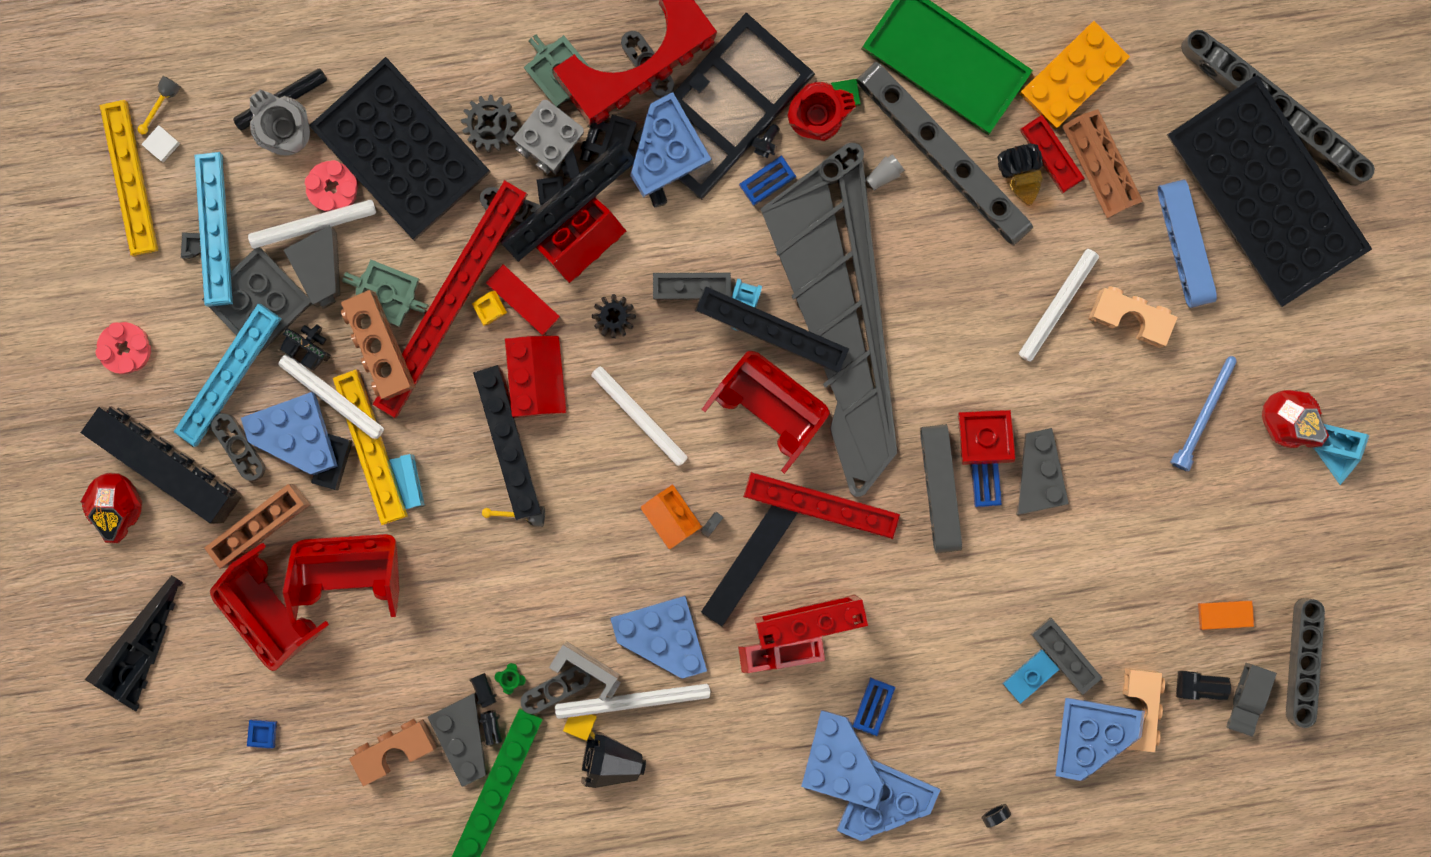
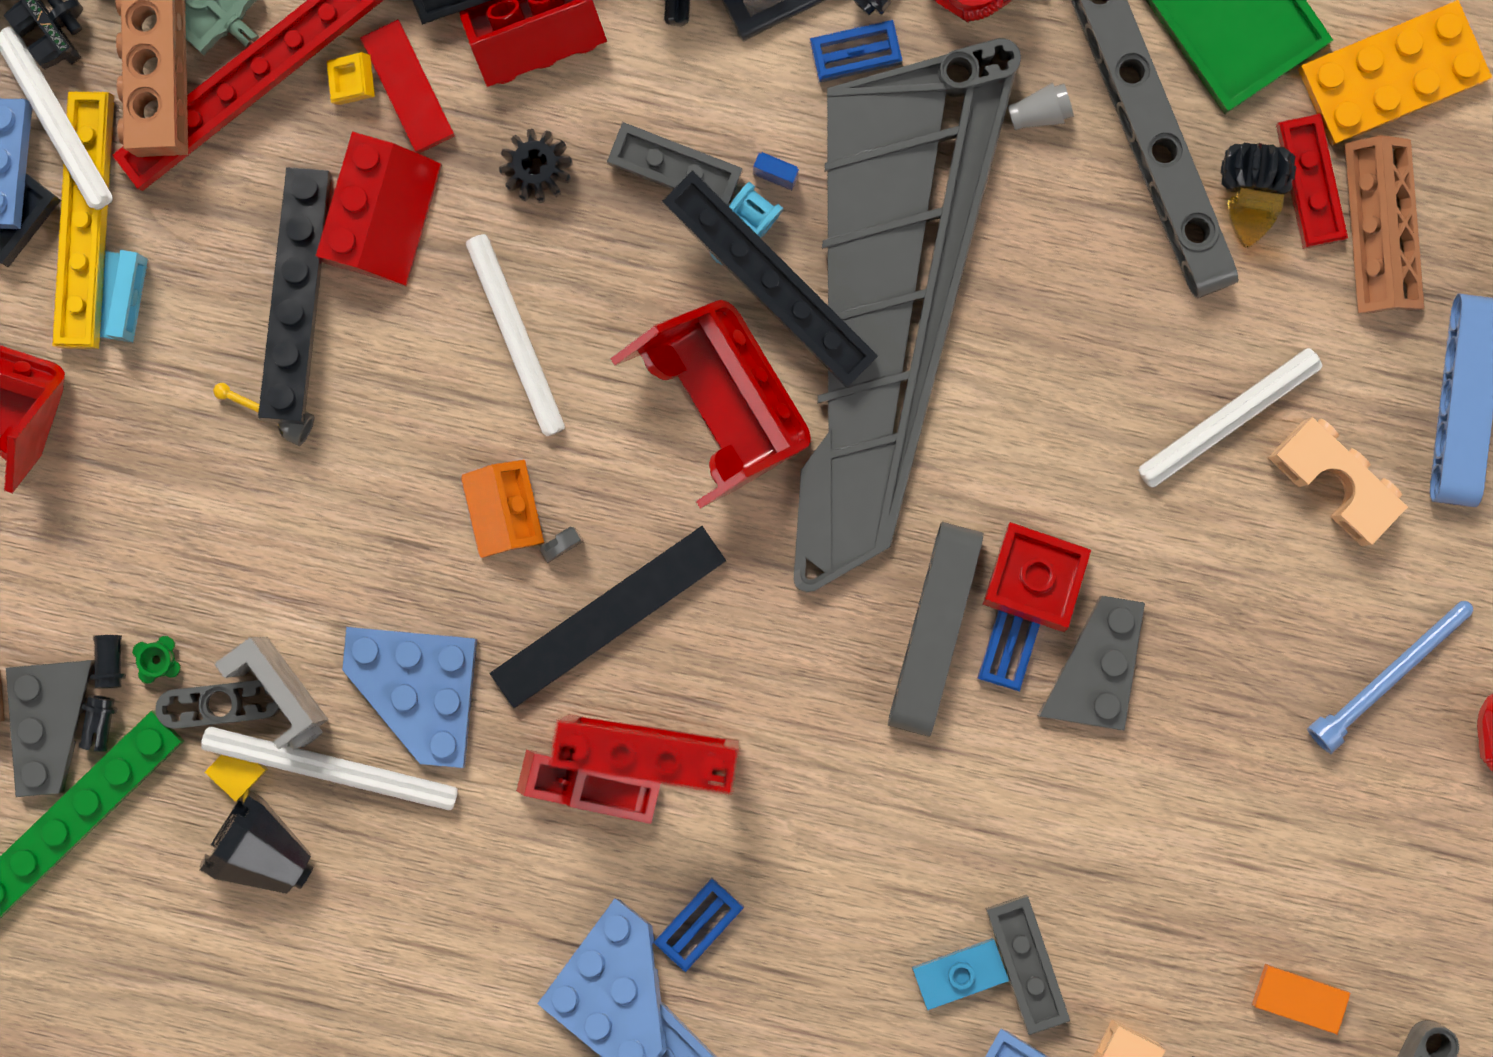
camera: 25 degrees right, 0 degrees up
(750, 266) = (775, 171): none -> blue tile
(821, 505) = (740, 582): red tile -> none

